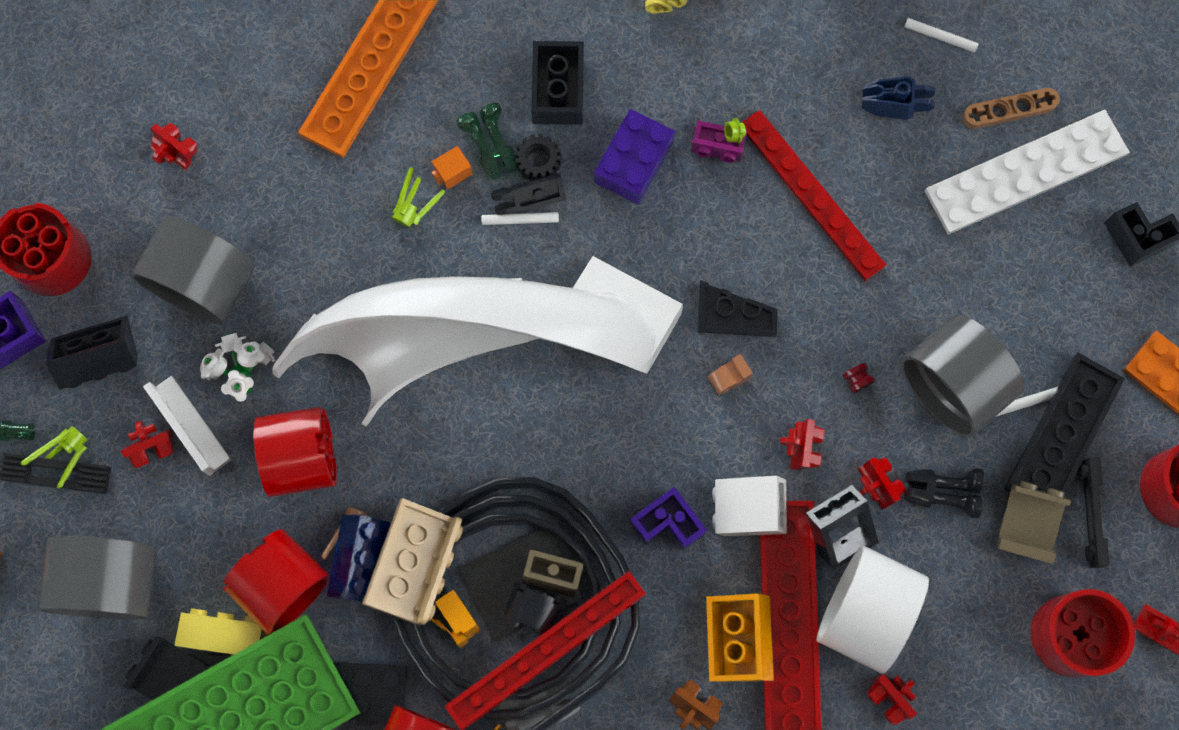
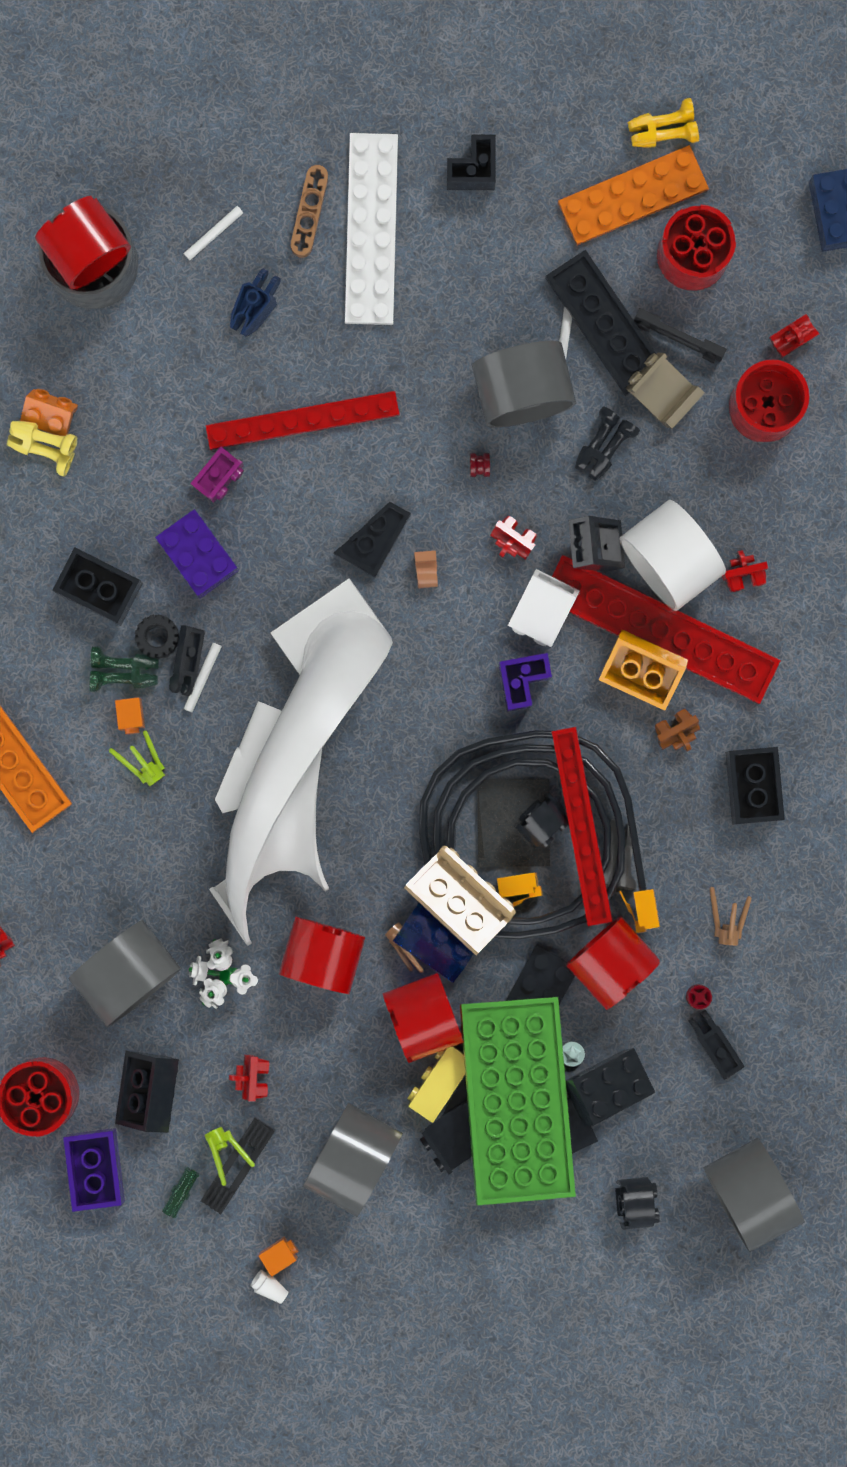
camera: 70 degrees left, 10 degrees up
(188, 425) = (250, 1037): white fence -> none
(552, 573) = (520, 793): dark tan brick -> none
(734, 131) = (217, 457): lime plate -> none
(878, 484) = (573, 496): red hips -> none

